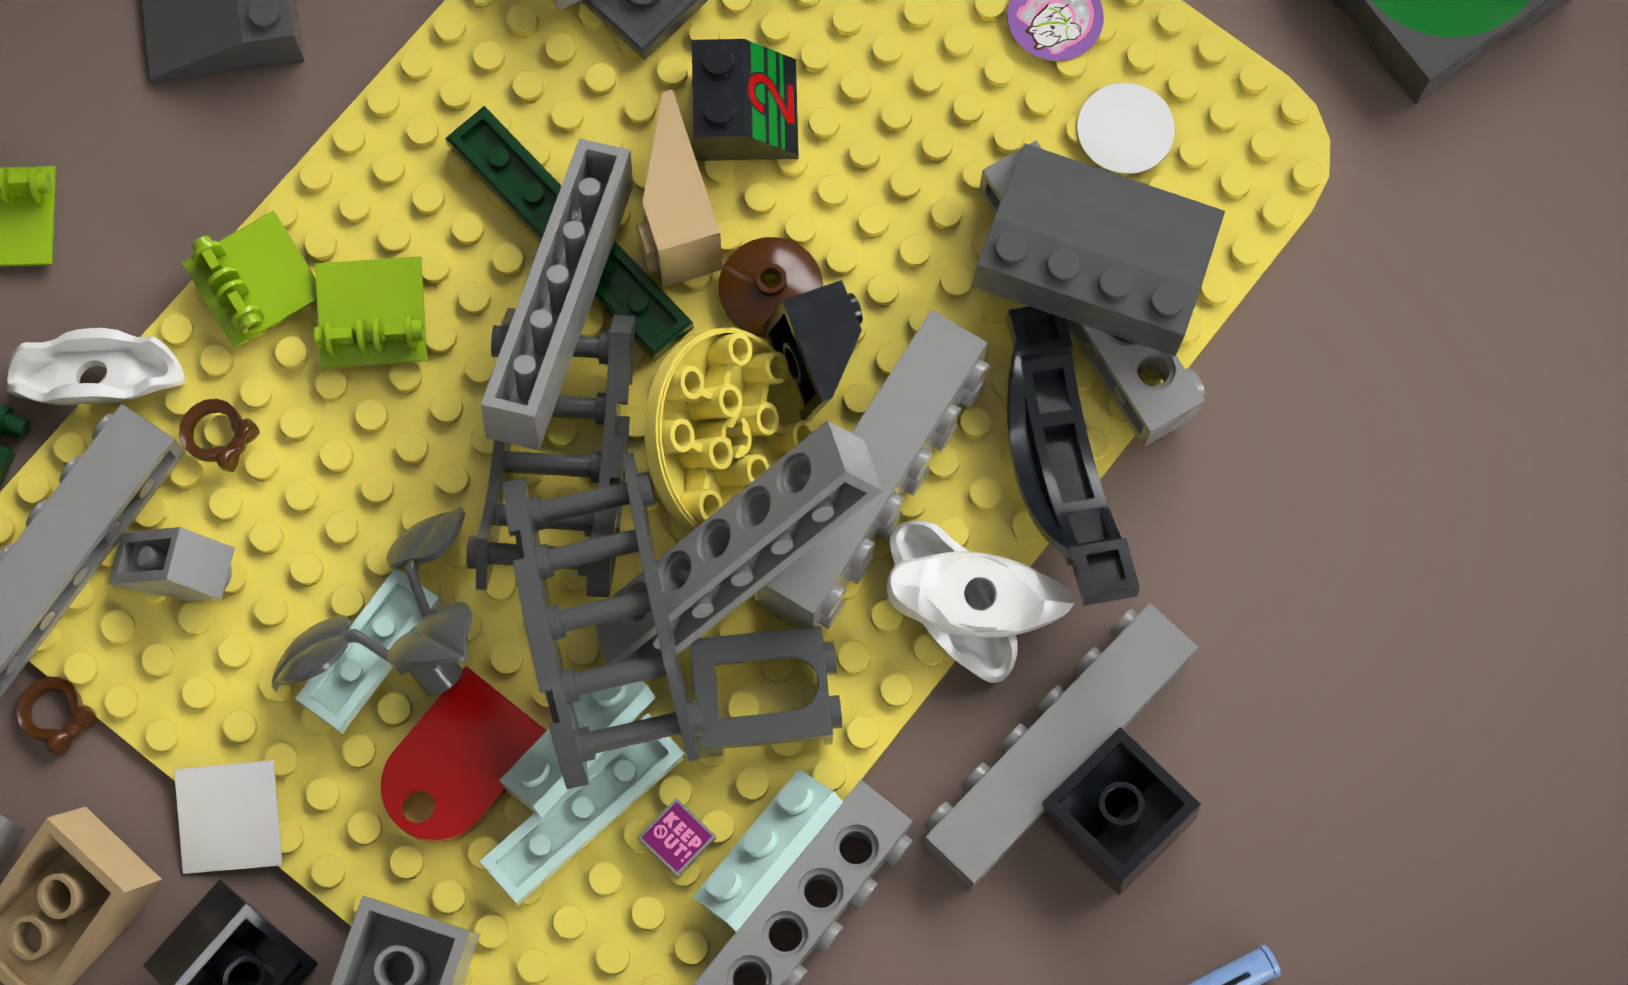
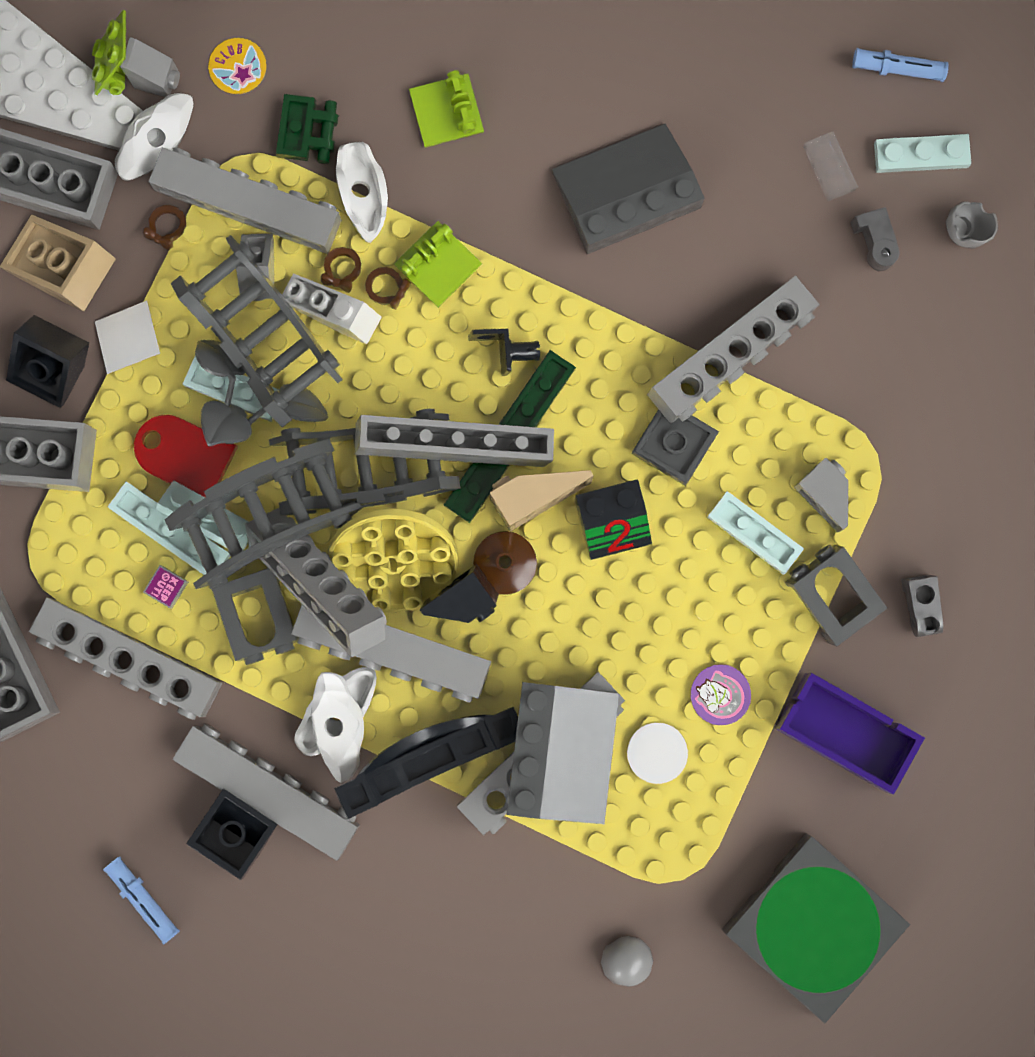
camera: 80 degrees right, 10 degrees up
(273, 343) = (394, 301): none -> reddish brown piece
(277, 460) = (332, 308): none -> white slope
(309, 608) = (239, 350): none -> dark grey fence
(370, 312) = (432, 335): lime hinge -> none
(427, 201) = (509, 350): none -> black bracket
(767, 850) = (167, 639): light aqua plate -> none
(1441, 248) = (627, 961): none -> light grey hair

